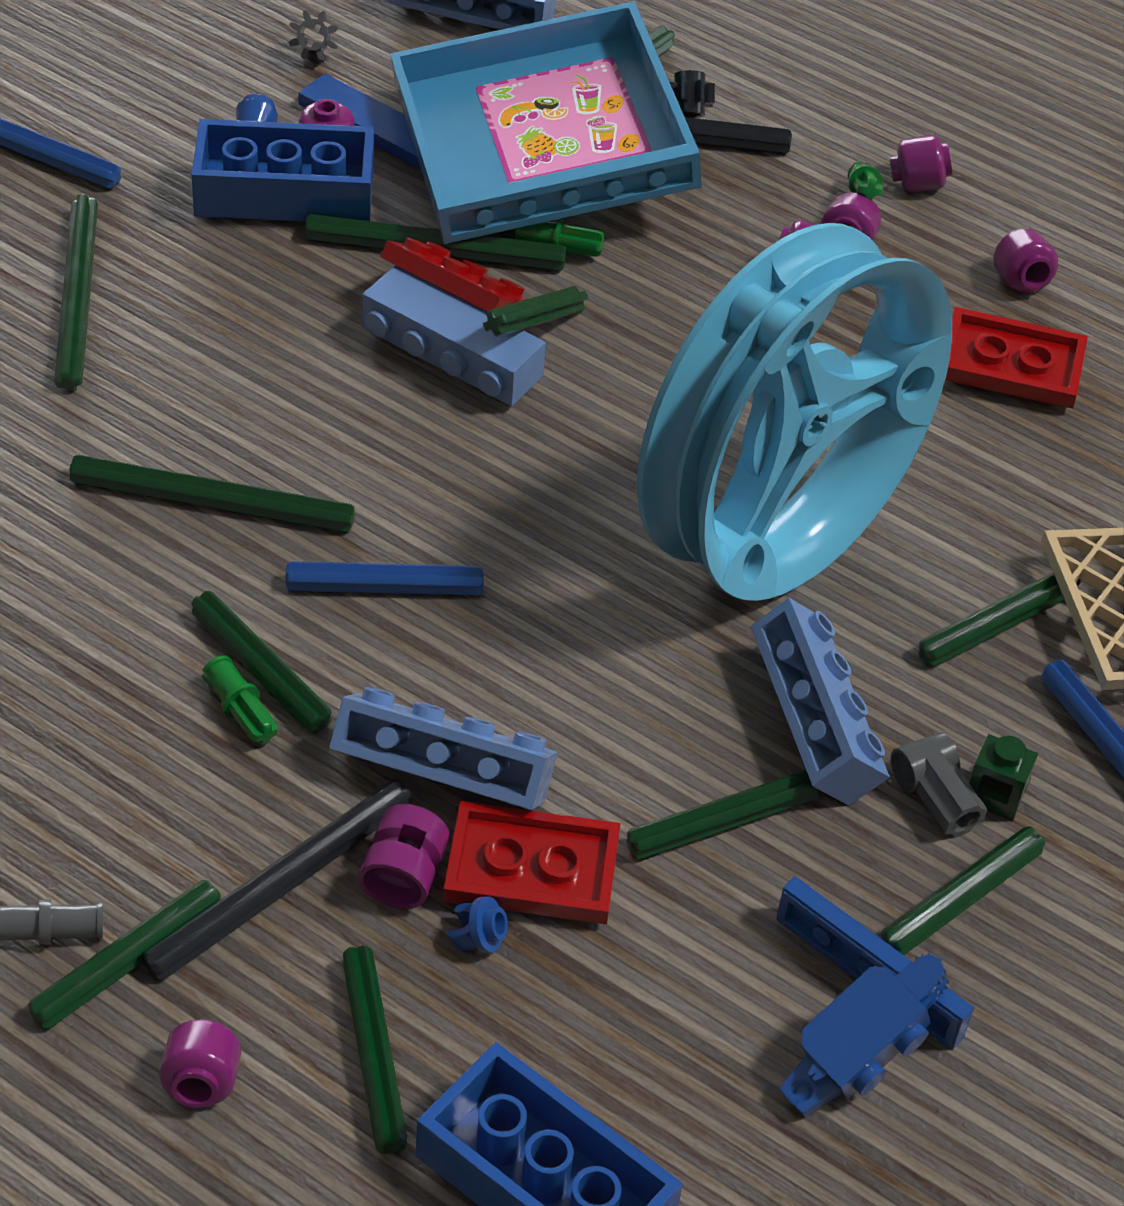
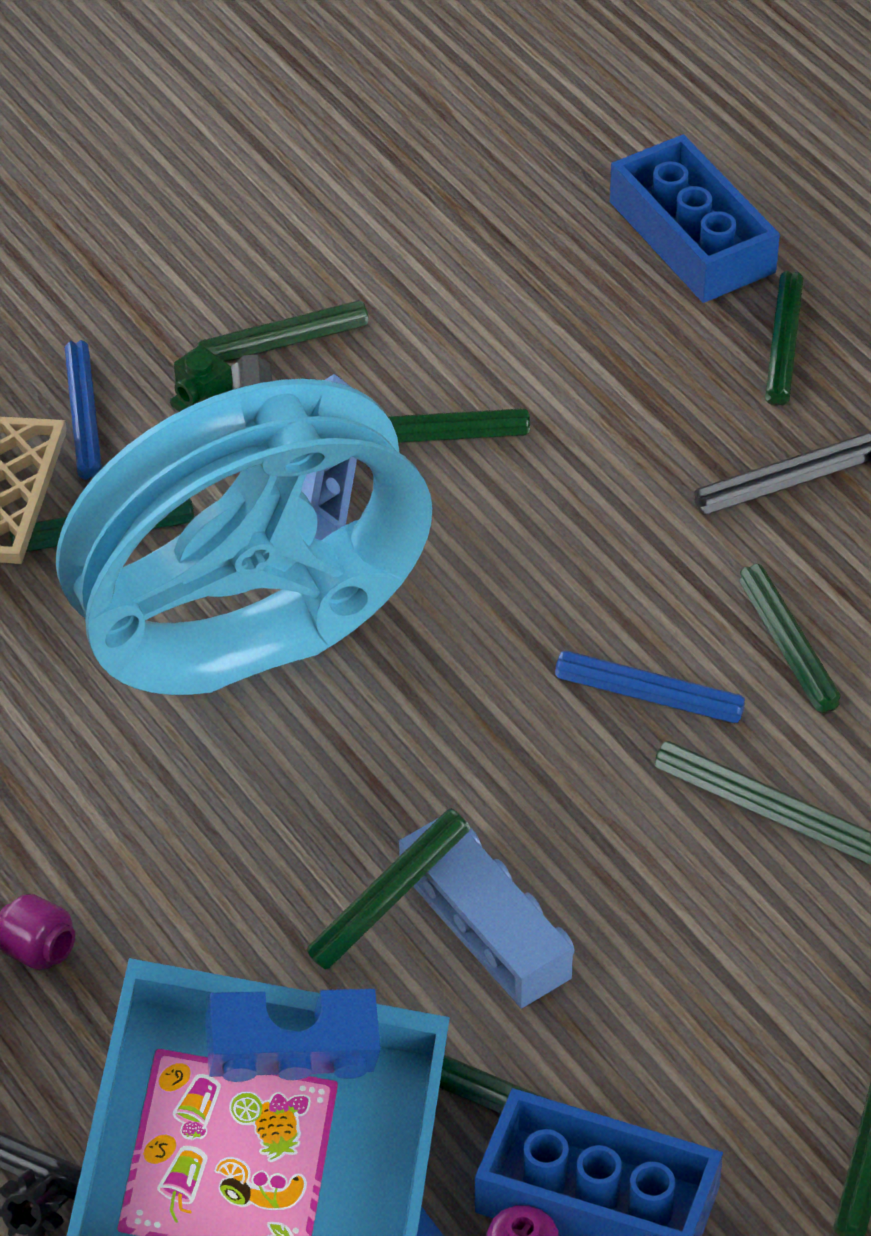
camera: 155 degrees left, 0 degrees up
(240, 699) = (818, 604): green axle -> none
(404, 856) = (720, 434): magenta wheel -> none
(444, 749) = (658, 498): medium blue brick -> none
(459, 278) = (452, 969): red plate -> none
(484, 927) = (673, 385): blue plate -> none
(533, 861) = (615, 421): red plate -> none
(573, 119) = (248, 1043): none -> blue arch
(857, 949) = (389, 294): blue tile -> none
(864, 1032) = (425, 236): blue hinge -> none

